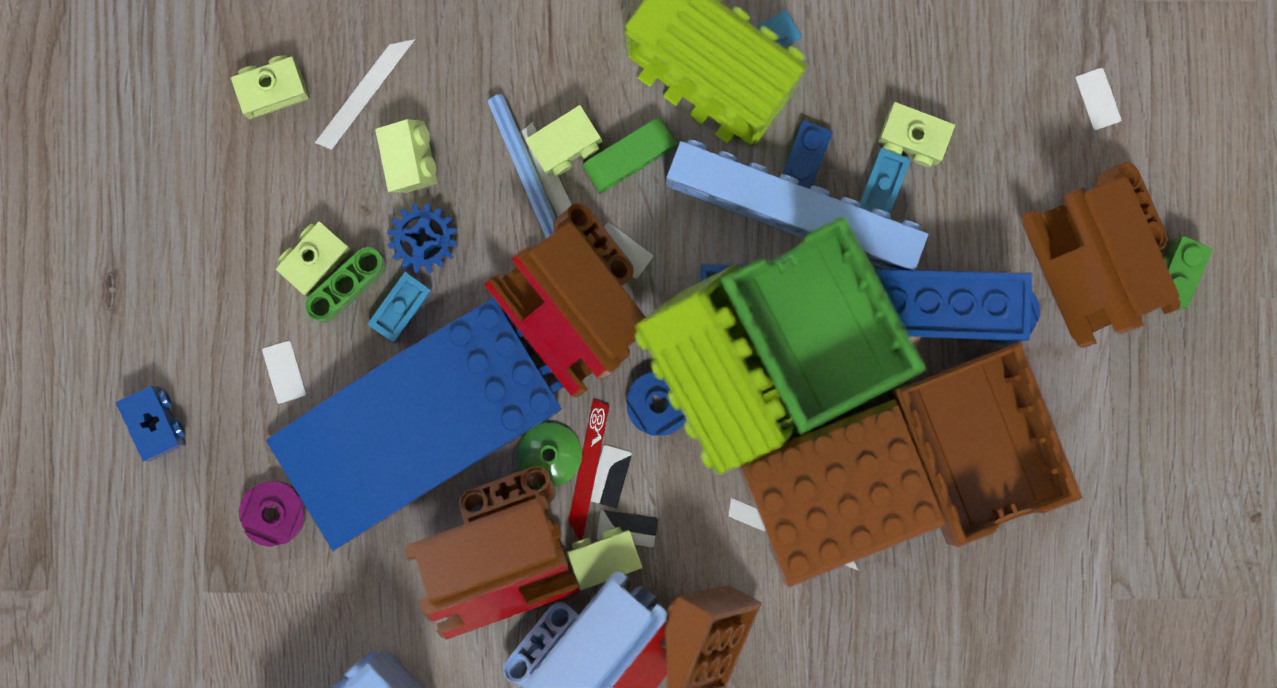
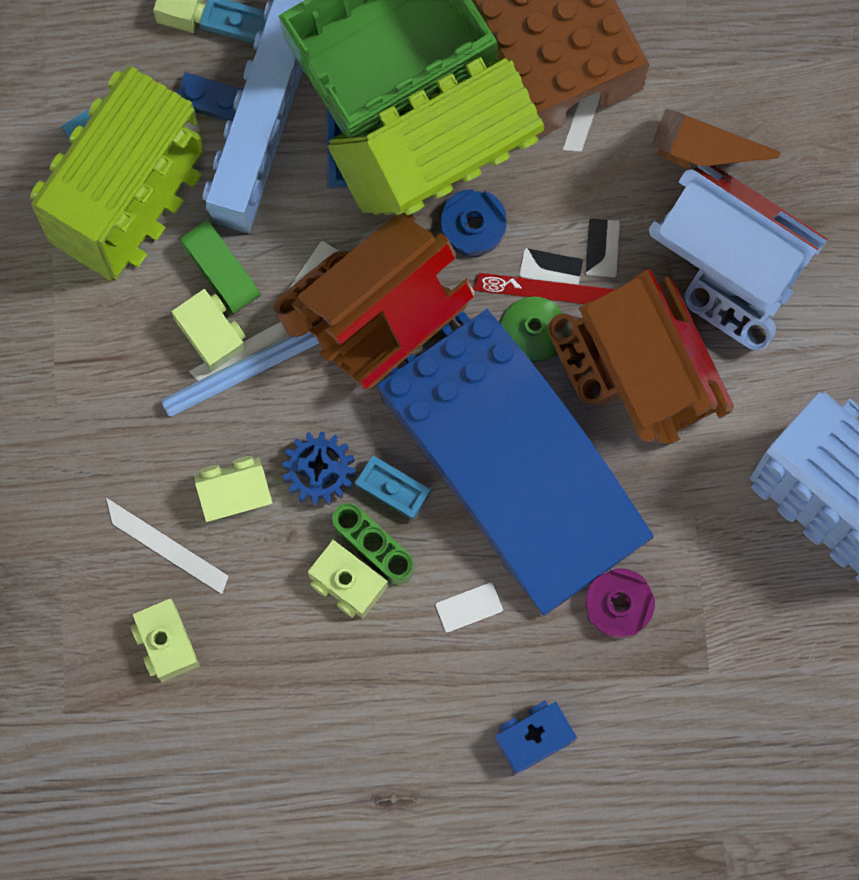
camera: 95 degrees left, 10 degrees down
(600, 559) = (633, 252): yellowish green brick -> none

